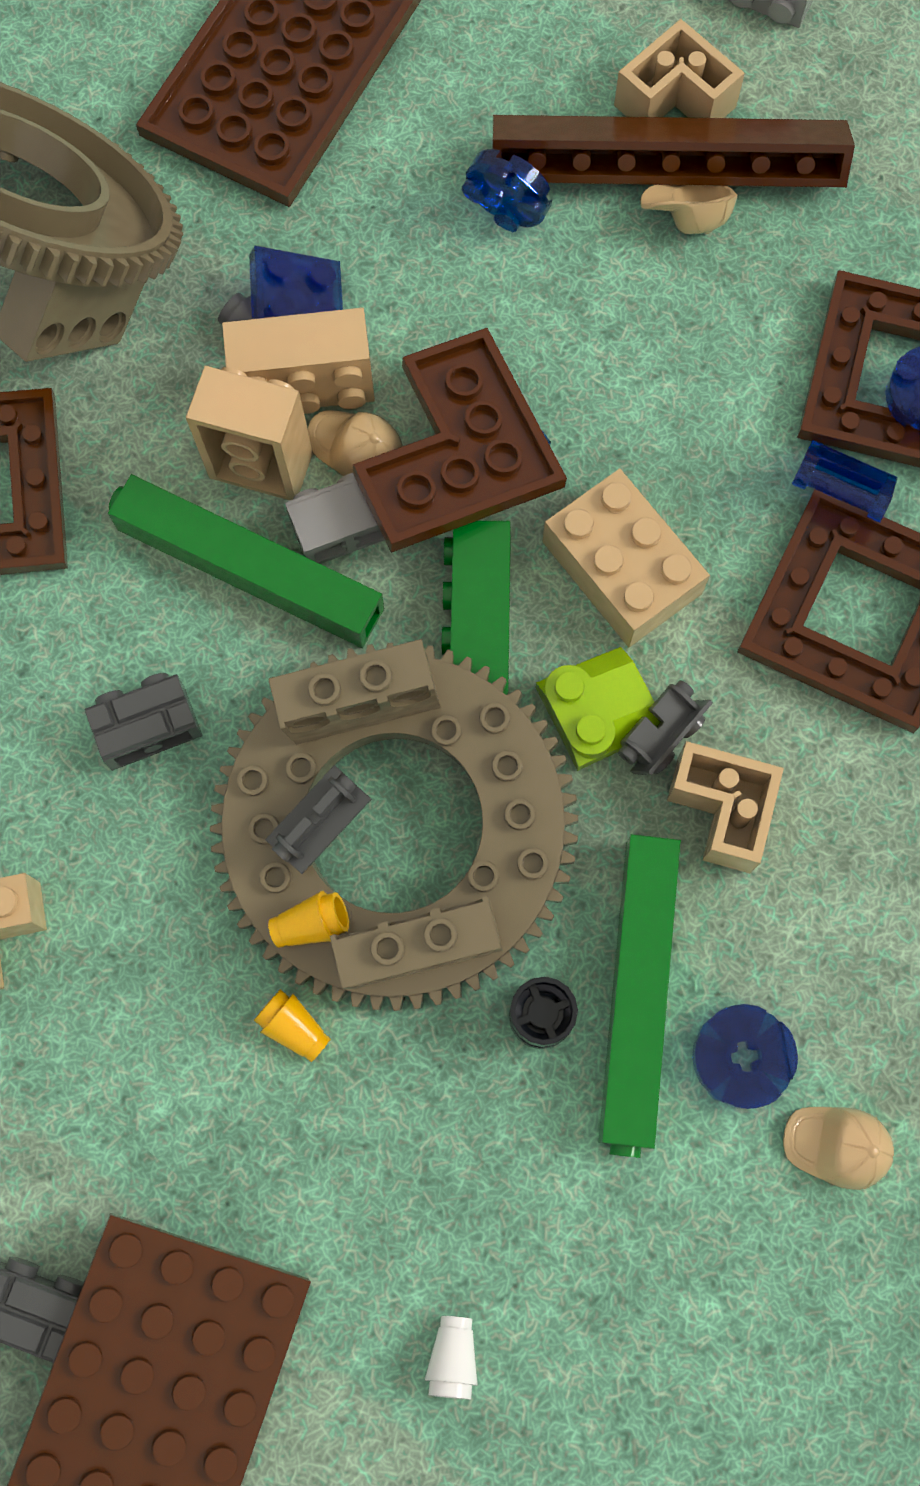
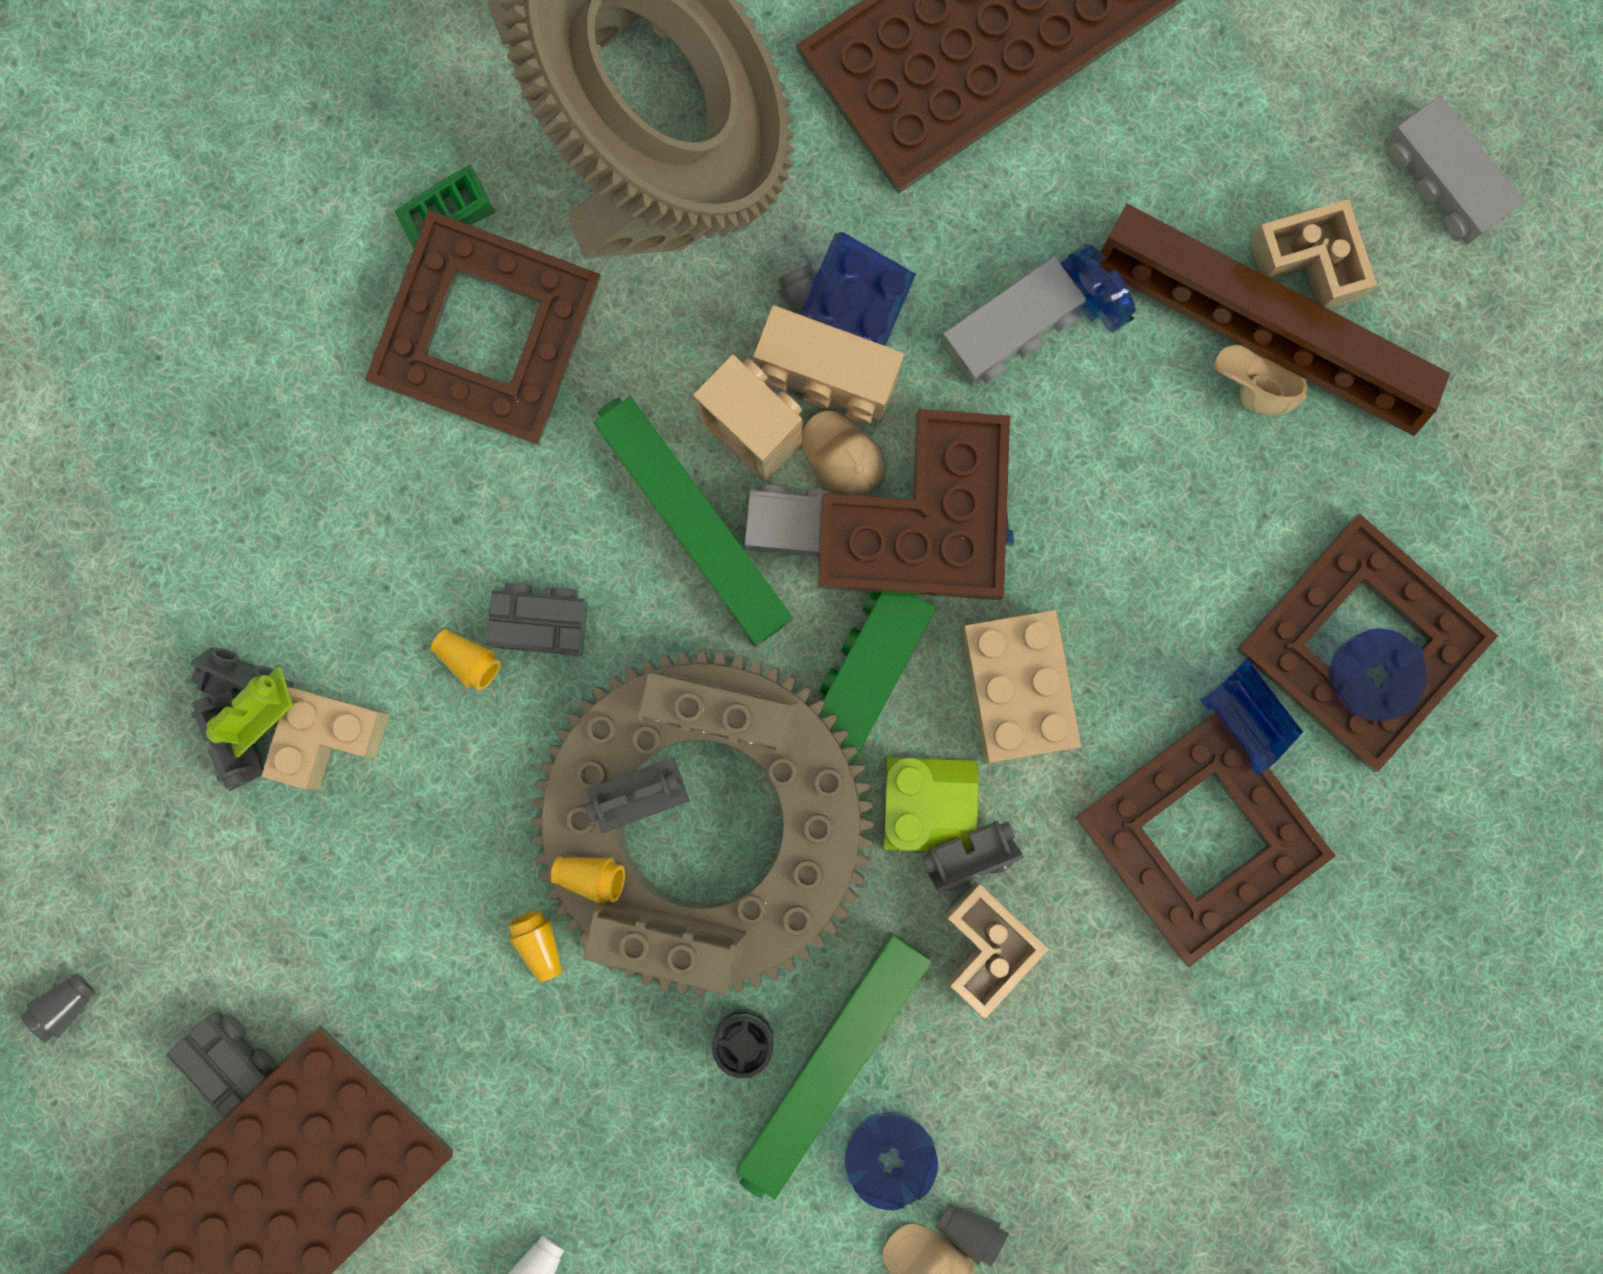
camera: 25 degrees right, 10 degrees up
(91, 790) = (467, 660): none -> yellow cone
(448, 258) = (1014, 323): none -> light grey brick
(862, 1086) = (973, 1234): none -> dark grey cone

